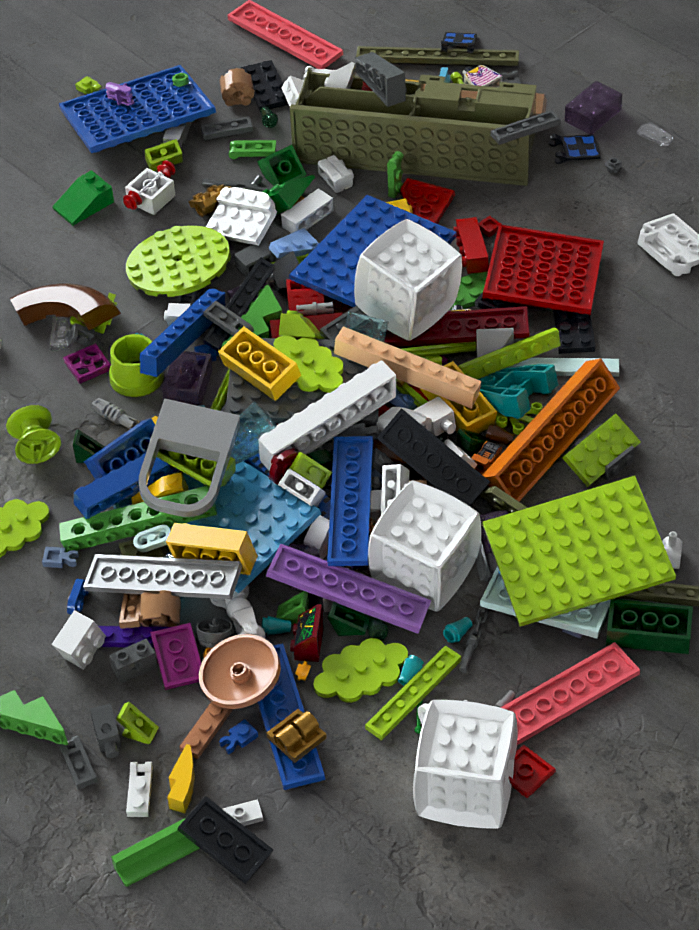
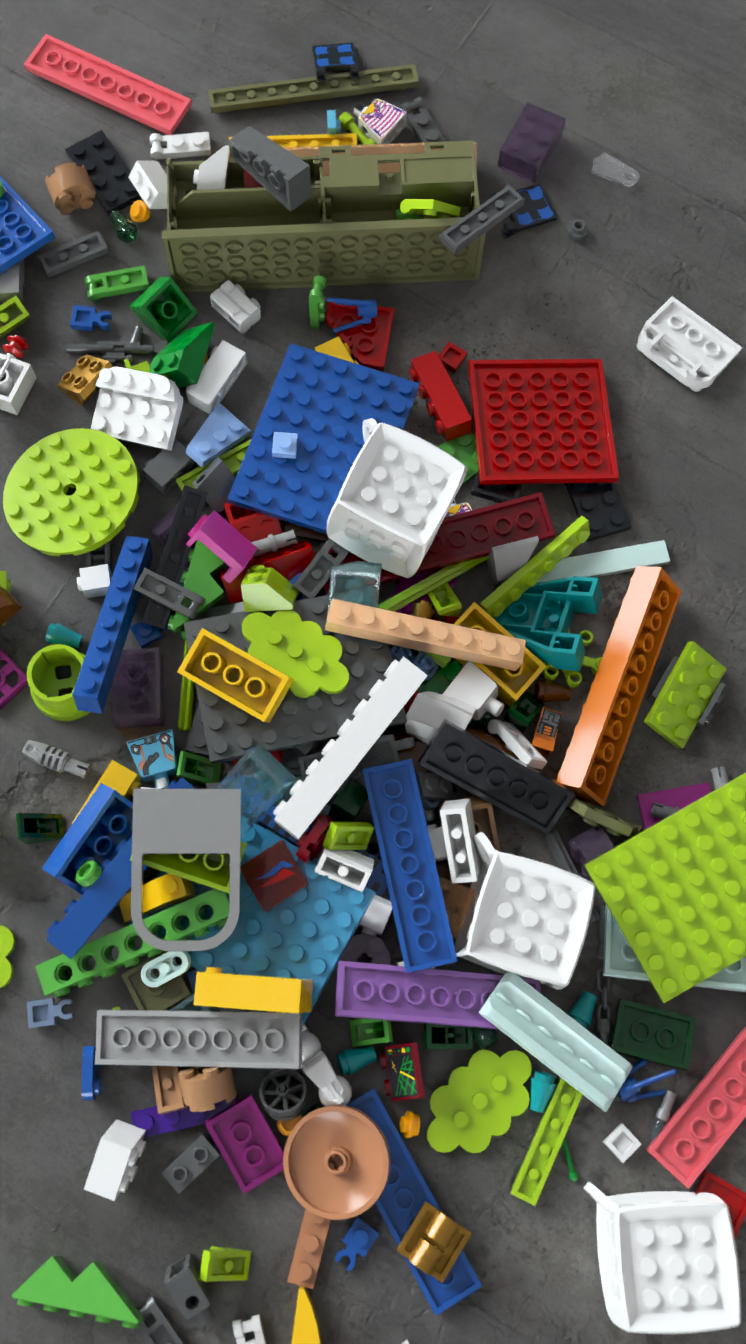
camera: 20 degrees left, 25 degrees up
(116, 463) = (88, 873): none -> bright green tile
(224, 165) = (87, 318): none -> blue plate
(249, 490) = (274, 876): none -> clear red tile
(277, 291) = (224, 542): none -> dark pink panel
(283, 110) = (139, 211): none -> light orange plate
(341, 248) = (284, 445): none -> light blue plate
(430, 632) = (556, 1040): none -> light aqua plate
(431, 184) = (365, 308): none -> blue plant
(478, 680) = (631, 1087): none -> blue plant
(489, 116) = (429, 208): none -> lime plate
(508, 652) = (653, 1034): none -> dark green plate

